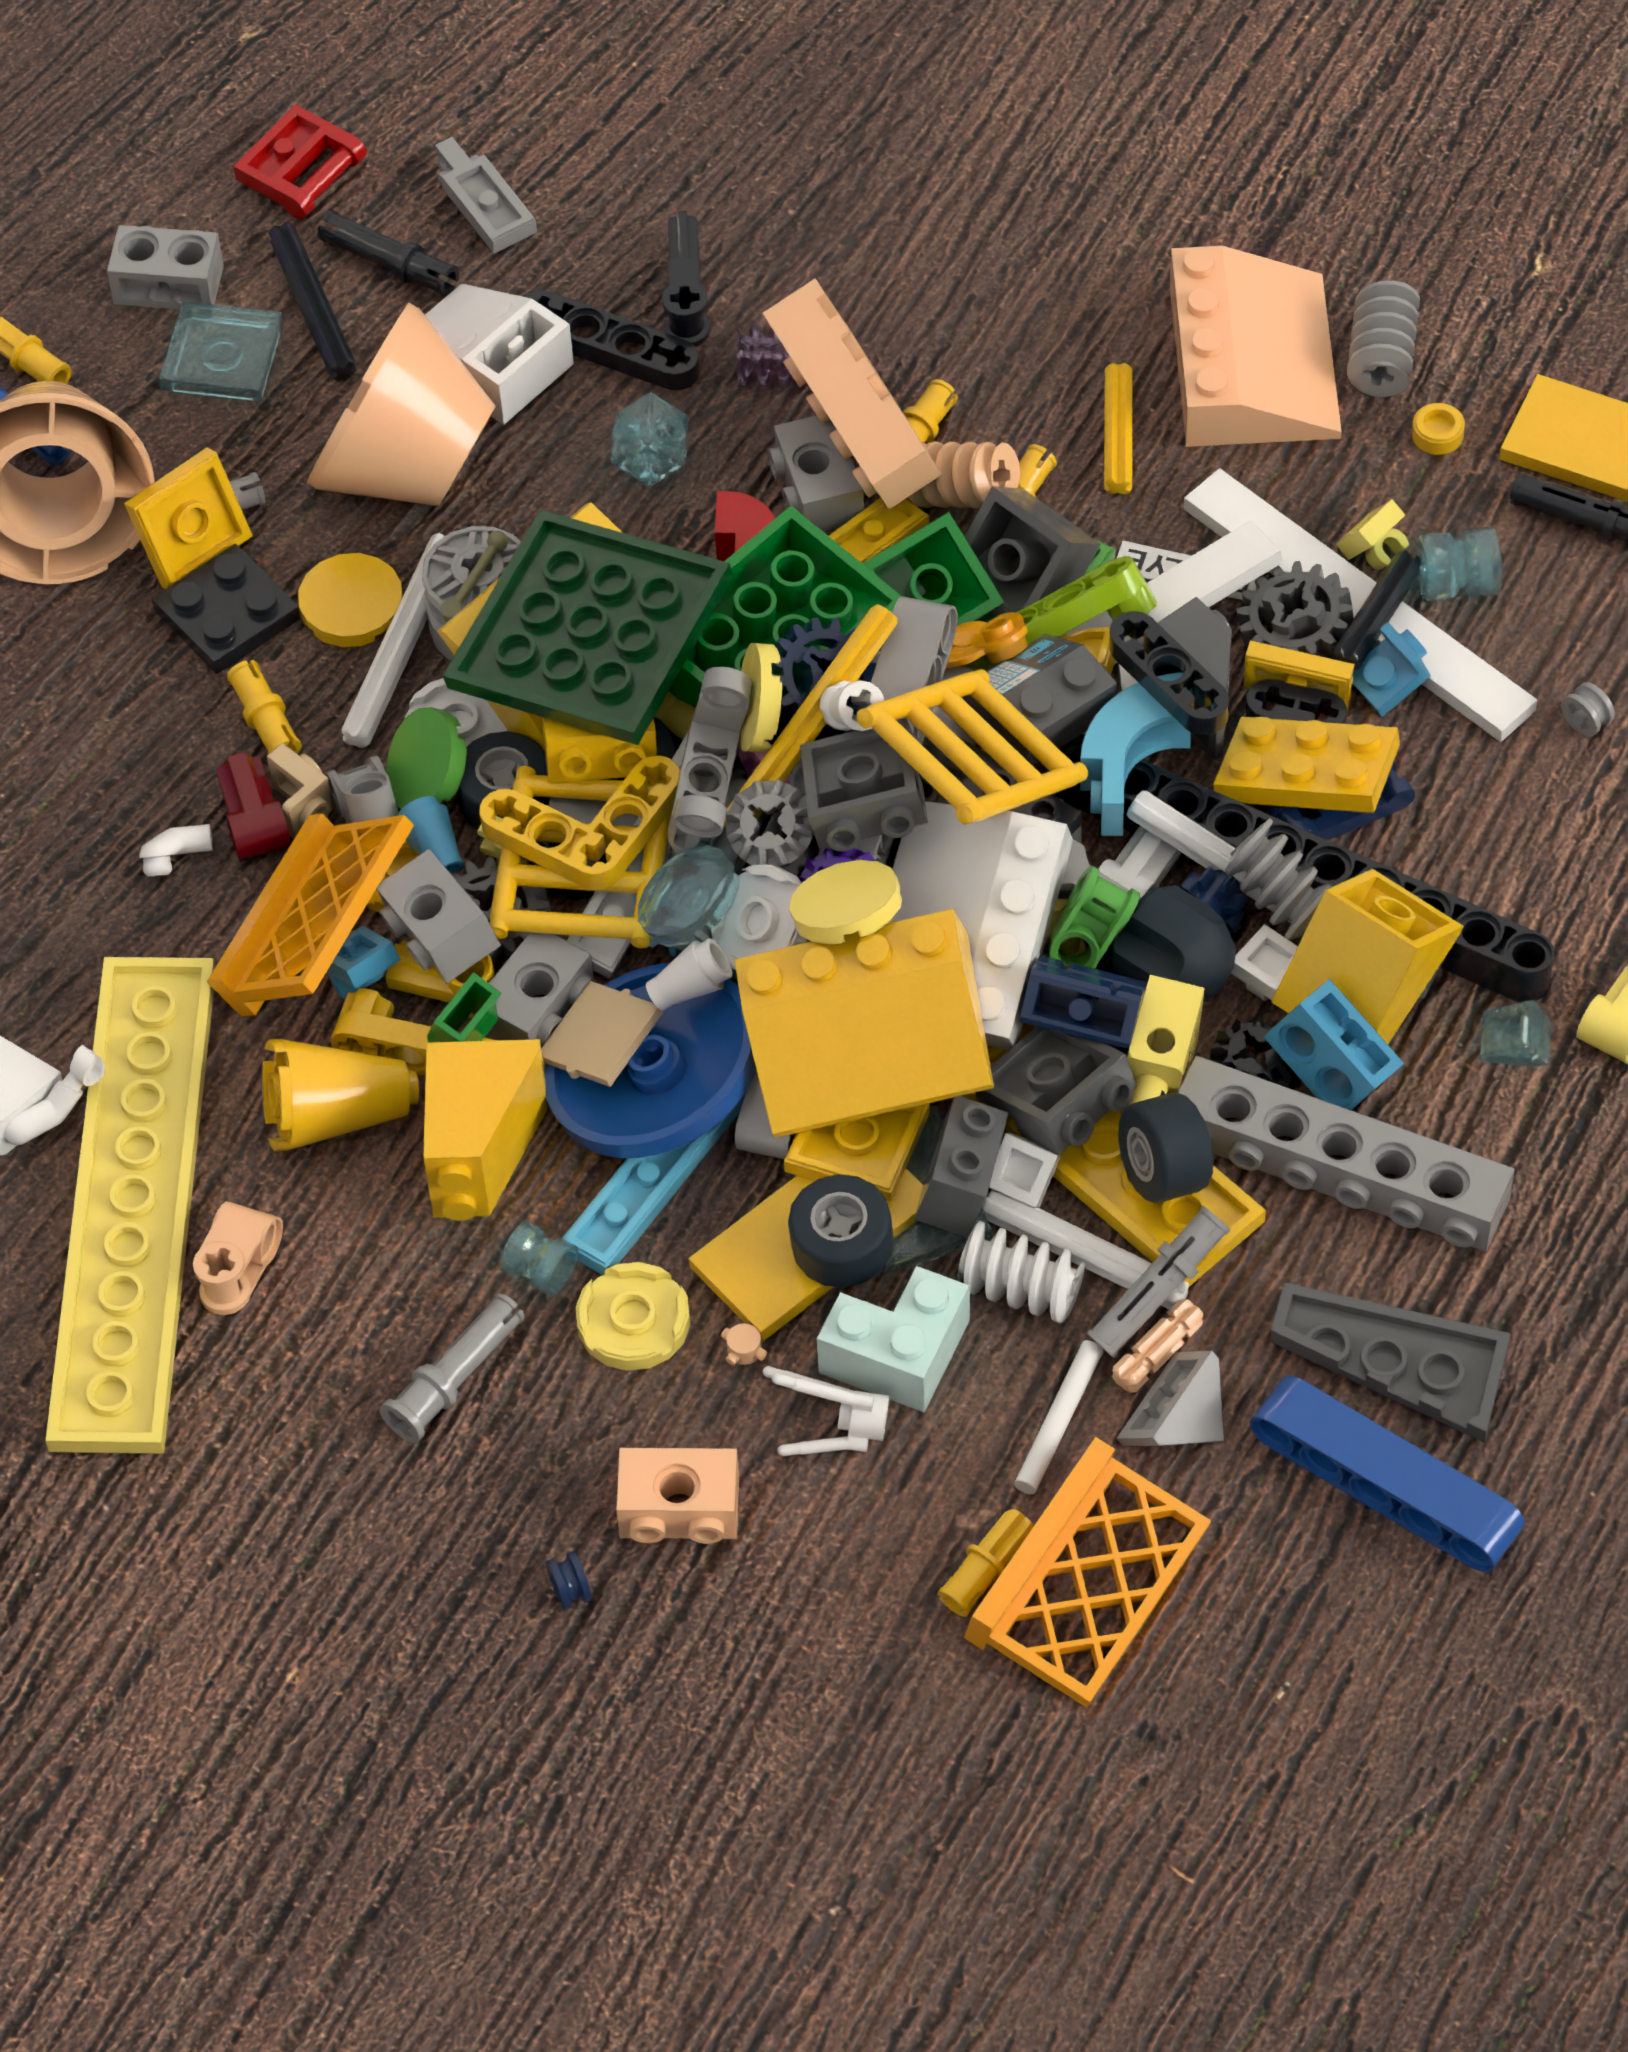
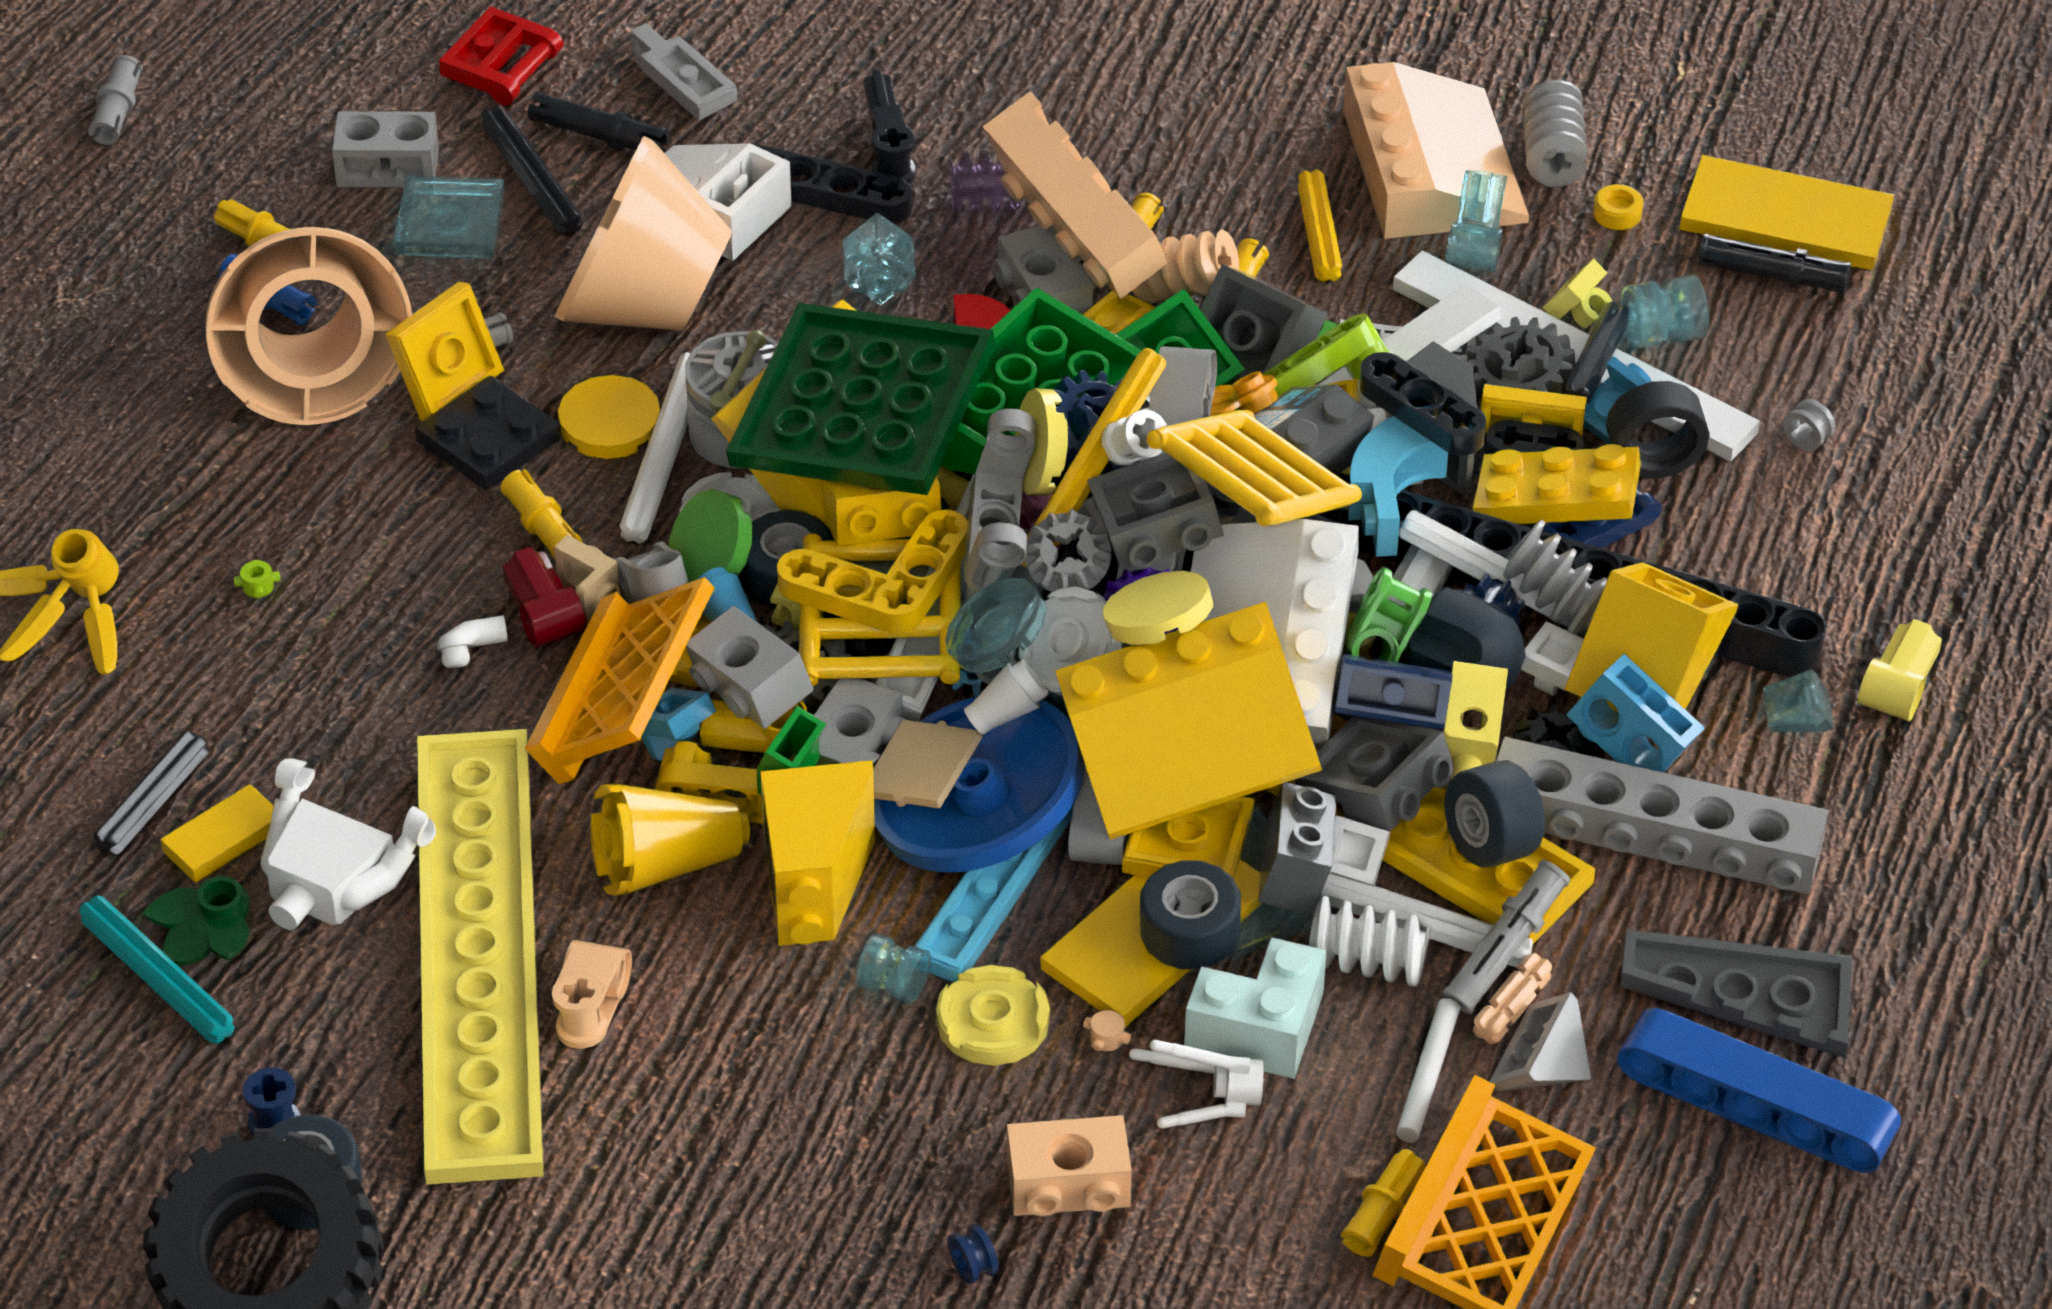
camera: 10 degrees left, 10 degrees down
(436, 1384) = (809, 1089): light grey pin -> none
(1277, 457) = (1476, 234): none -> clear light blue piece
(1424, 683) = (1657, 401): none -> black tyre

